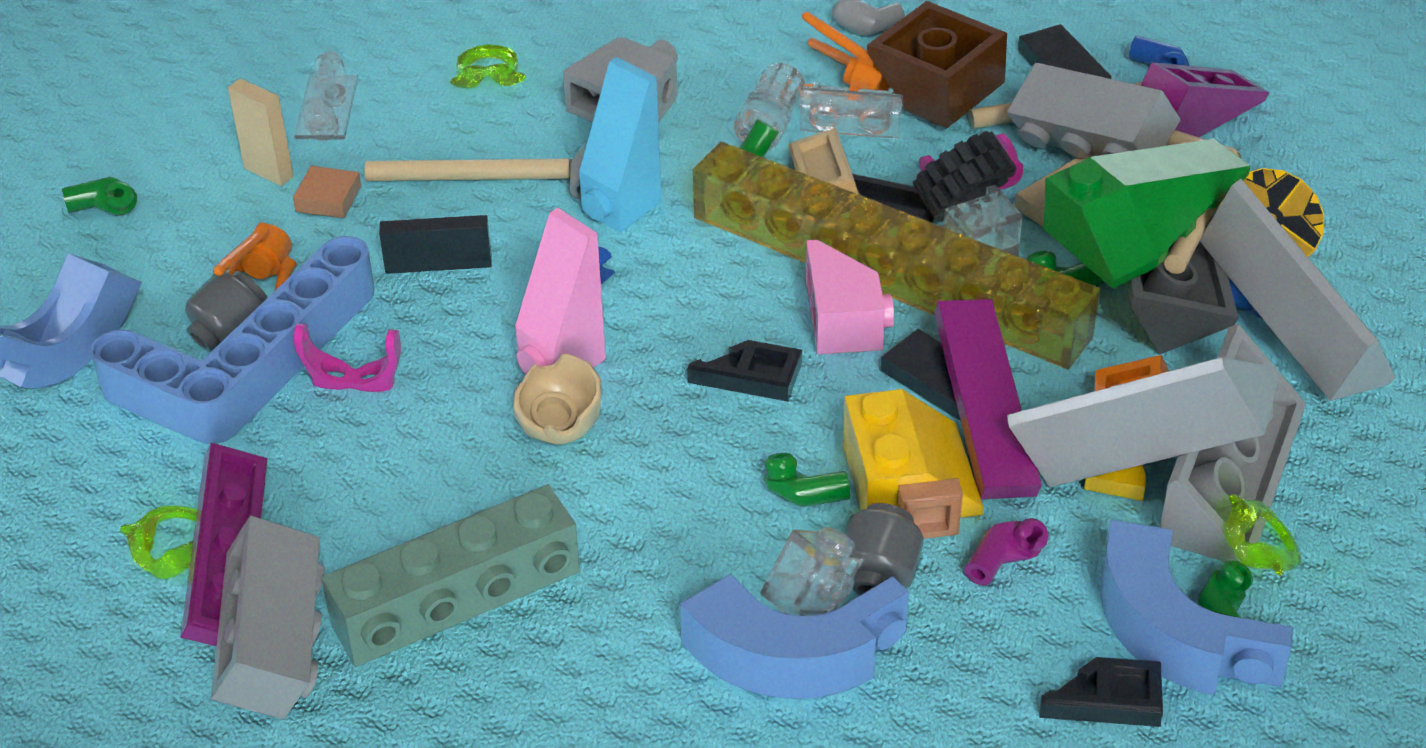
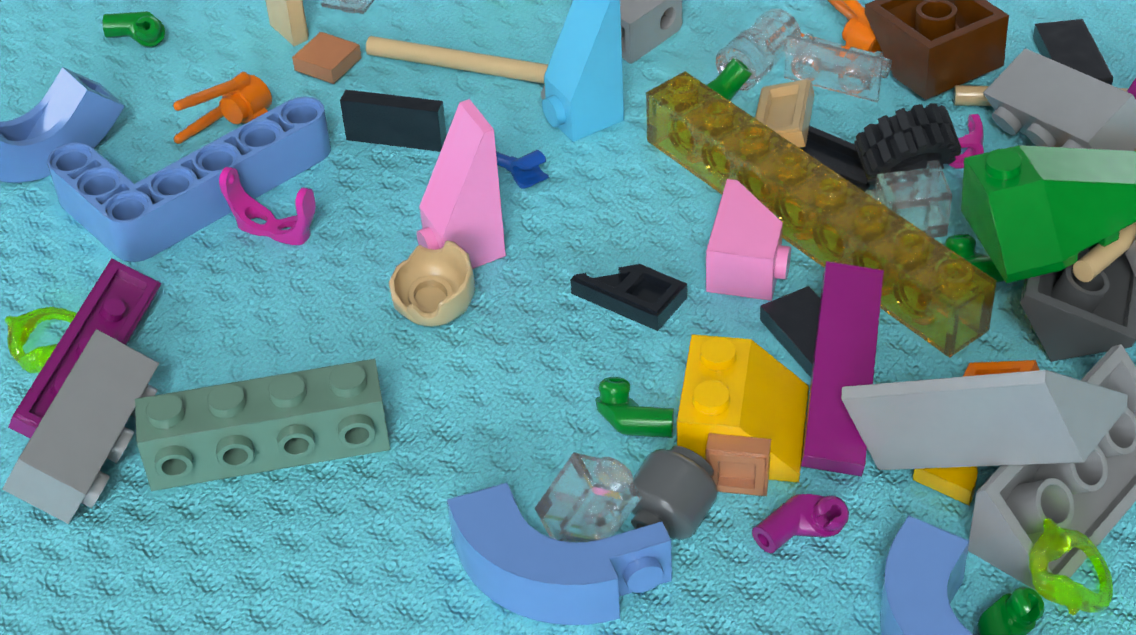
camera: 20 degrees right, 0 degrees up
(221, 307) = (179, 137): dark grey head -> none

